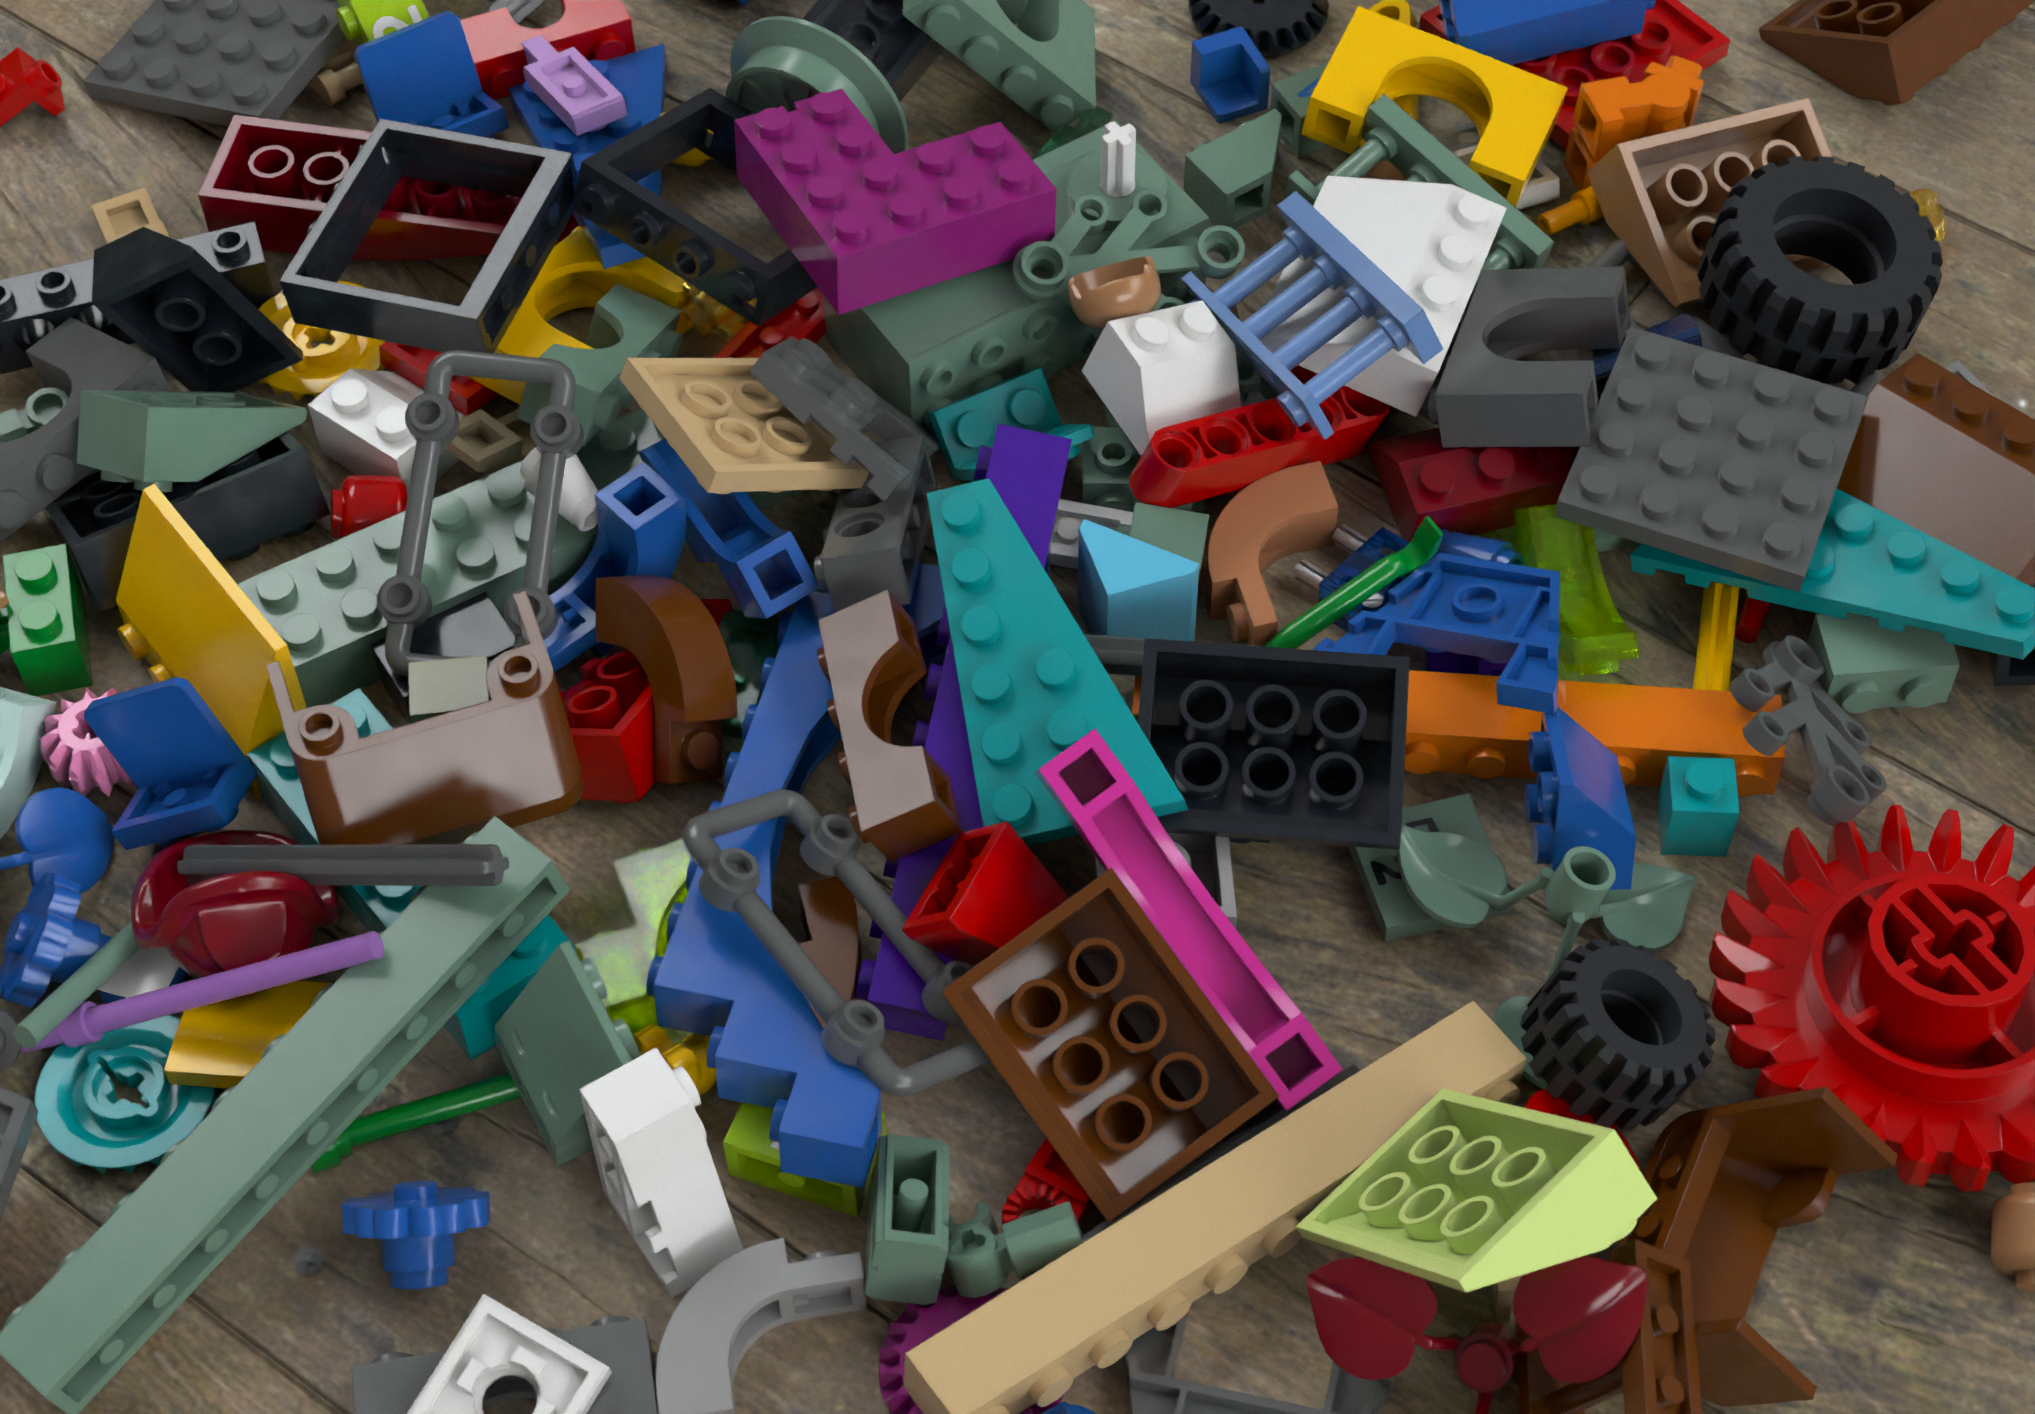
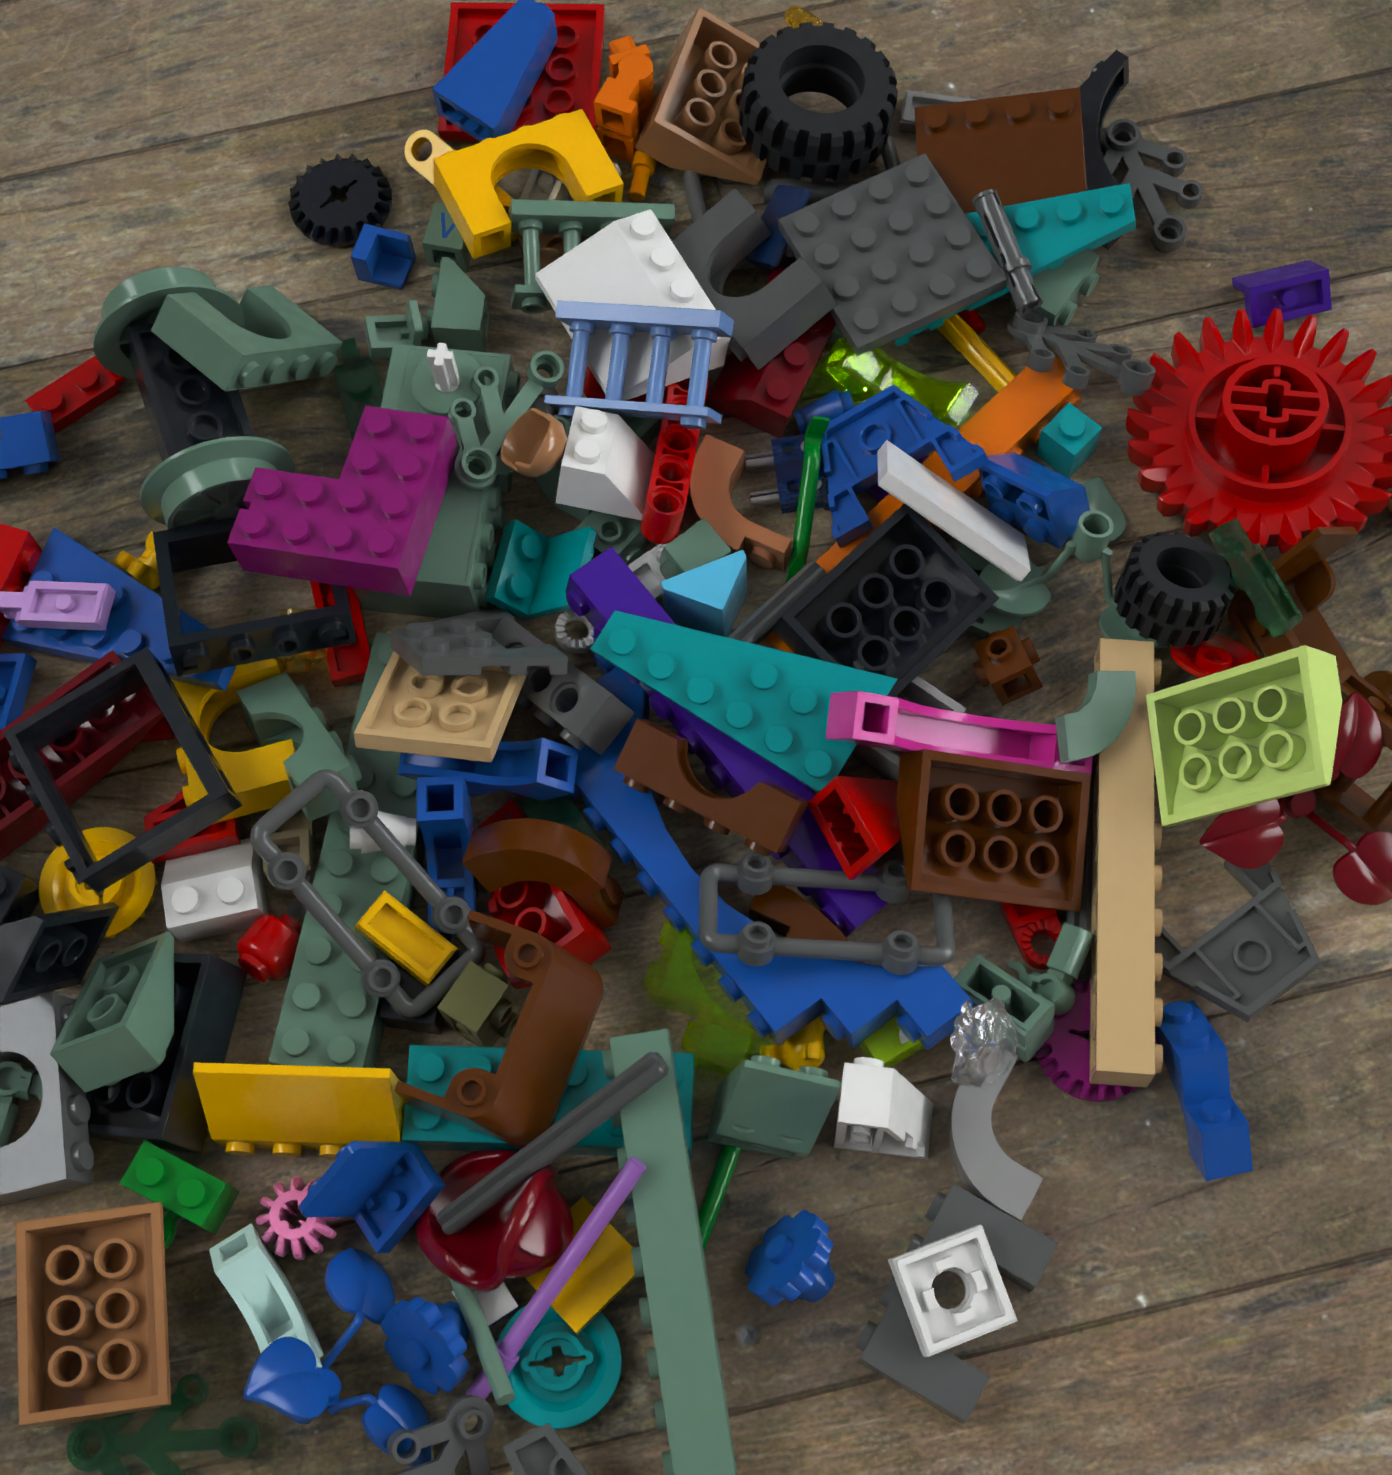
camera: 45 degrees left, 15 degrees up
(470, 595) = (405, 938): none -> yellow tile
(827, 1204) = (982, 1043): none -> clear hat
(1162, 139) = (387, 330): none -> sand green bracket
(1346, 937) = (1007, 664): none -> reddish brown brick
(1357, 1053) = (1099, 717): none -> sand green tile
(1458, 725) = (952, 511): none -> white tile
(1710, 1097) = (1257, 577): none -> clear green hinge
(1832, 570) = (1007, 251): none -> dark grey pin

